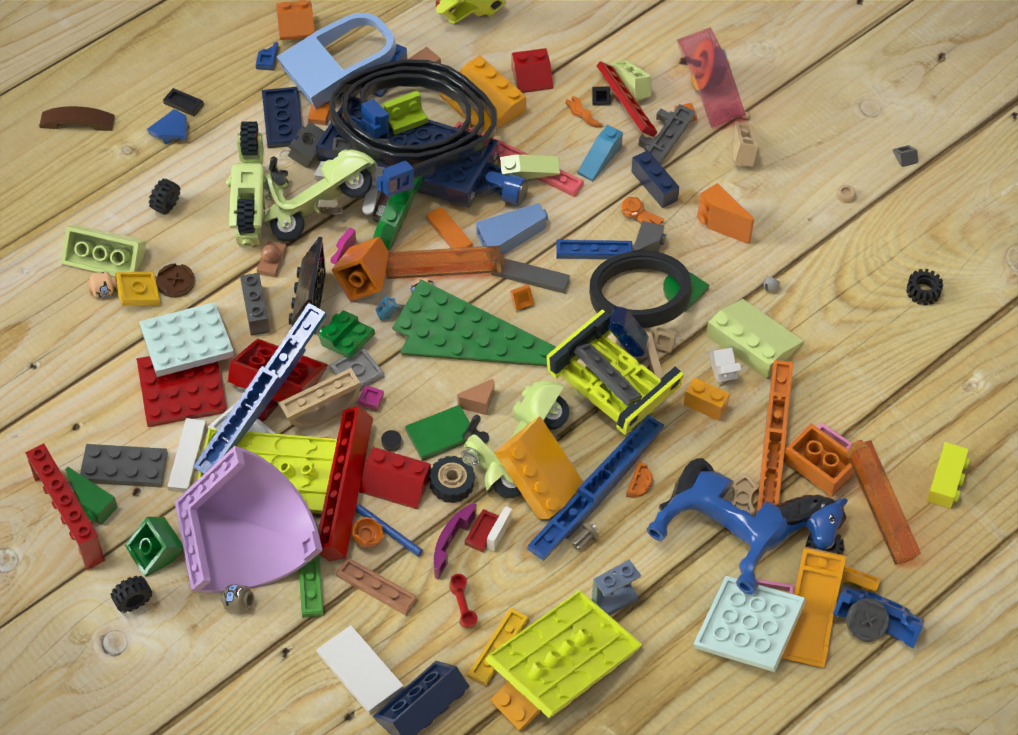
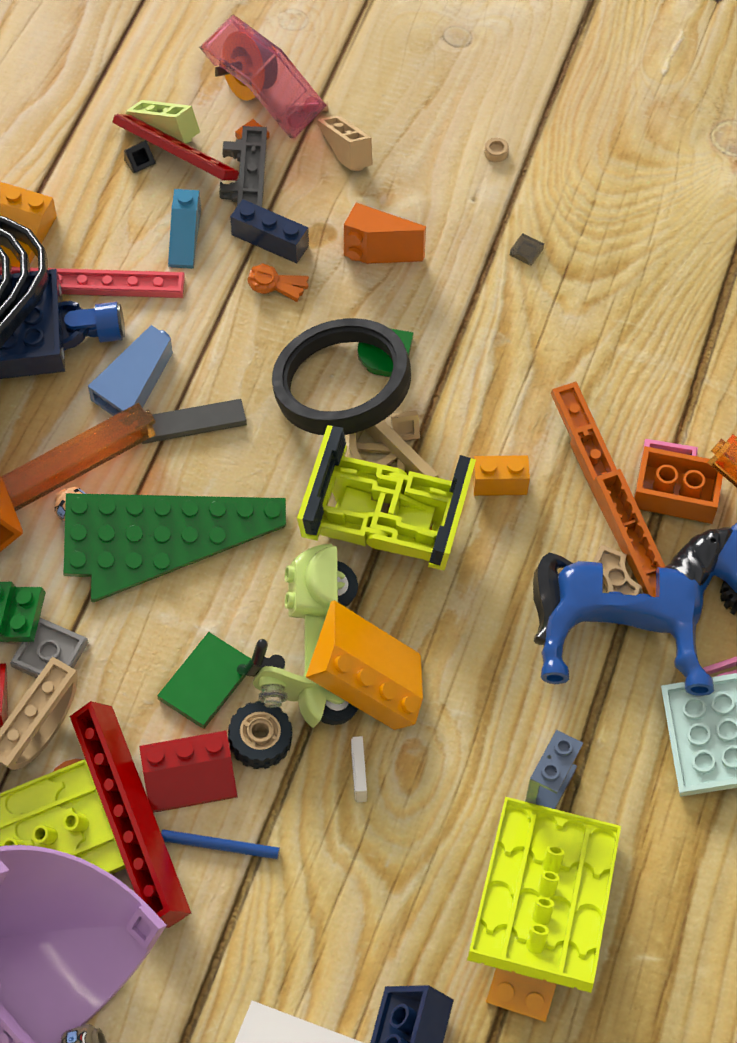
camera: 30 degrees left, 5 degrees up
(311, 589) = (171, 982): bright green tile -> none
(367, 533) = (199, 864): orange hair -> none
(371, 397) = (91, 680): dark pink plate -> none
(376, 586) = (250, 928): nougat tile -> none
(387, 308) = (41, 550): dark azure piece -> none
(391, 440) = (150, 723): black tile -> none
(448, 229) = (55, 411): orange tile -> none
(457, 587) = (393, 909): red bar -> none
(463, 520) = (305, 784): magenta slope -> none
(477, 398) = (227, 612): nougat slope -> none
(481, 529) = (337, 781): red tile -> none
(509, 627) = (450, 925): yellow tile -> none
(522, 297) = (200, 455): orange tile -> none
(530, 166) = (110, 283): yellowish green slope -> none
(532, 70) = (36, 161): red slope -> none
(577, 110) = (121, 188): orange hair -> none
(588, 533) = (466, 723): dark tan piece -> none
(591, 249) = (246, 353): blue tile -> none
(595, 488) = (441, 663): blue slope -> none
(608, 374) = (381, 504): dark grey tile -> none
(628, 331) = (370, 437): clear blue beam -> none
(640, 482) = (486, 617): orange tile -> none
(650, 237) = (308, 307): dark grey slope -> none
(724, 364) = (493, 423): white brick -> none
(753, 336) = (503, 373): yellowish green slope -> none
(771, 284) = (482, 297): light grey hinge -> none
(823, 267) = (526, 249): none -> clear smoke tile
(906, 155) = (533, 74): dark grey slope -> none
(924, 295) = (654, 209): black tyre -> none

